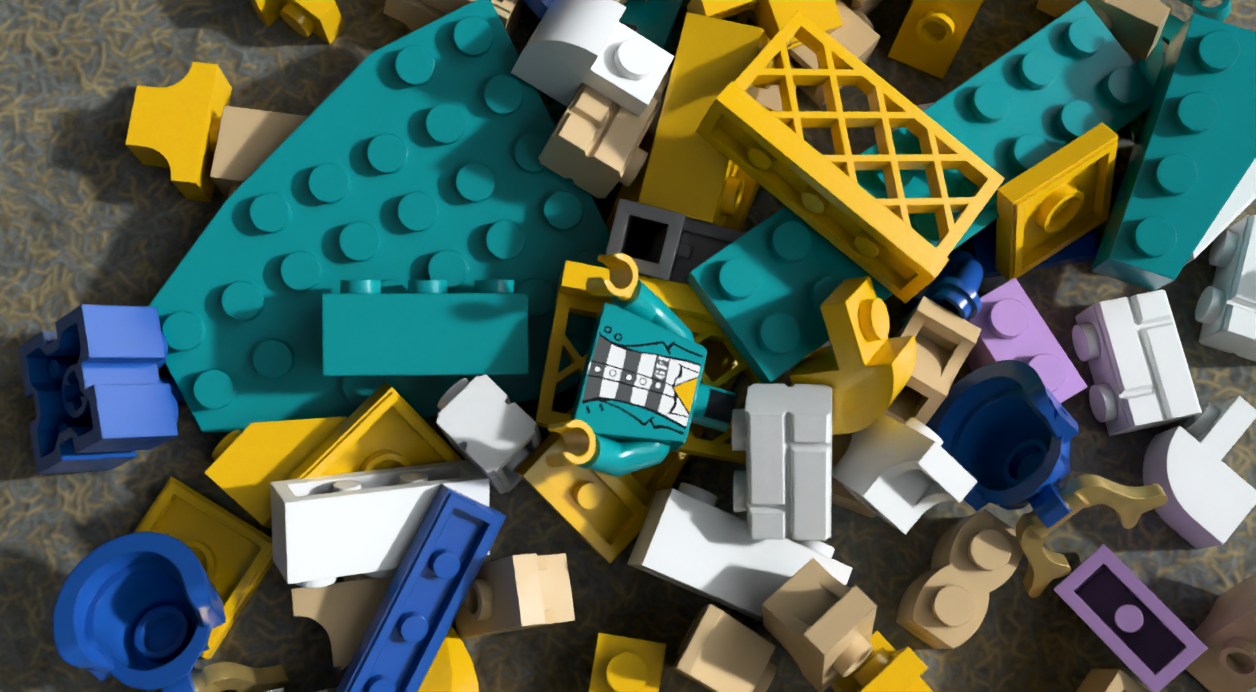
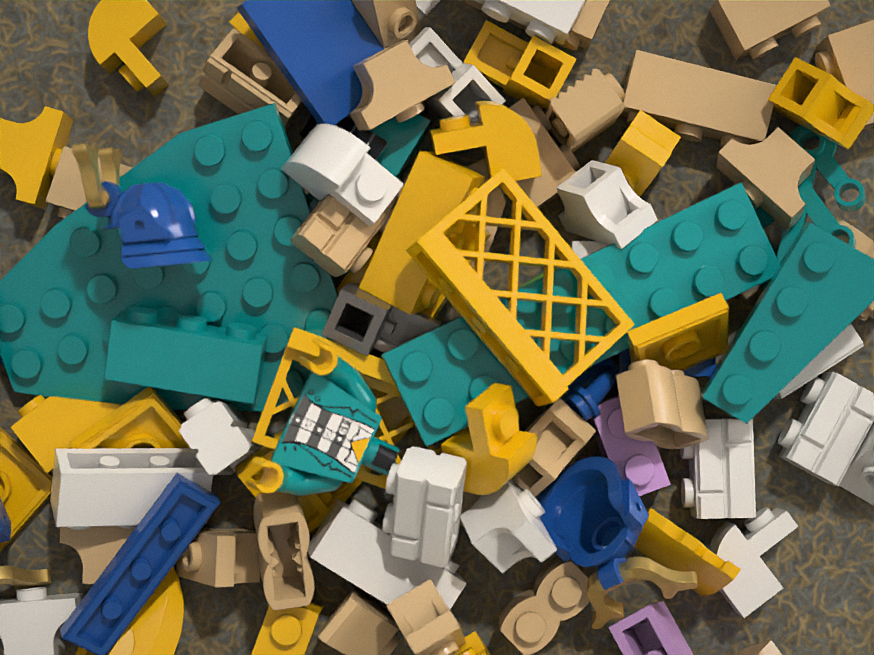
camera: 20 degrees right, 10 degrees up
(352, 143) = (152, 217): none -> blue helmet
(604, 574) = (283, 550): none -> tan brick
(924, 55) = (603, 205): none -> white brick
(1056, 284) = (661, 405): none -> tan brick
(1135, 467) = (680, 551): none -> yellow slope

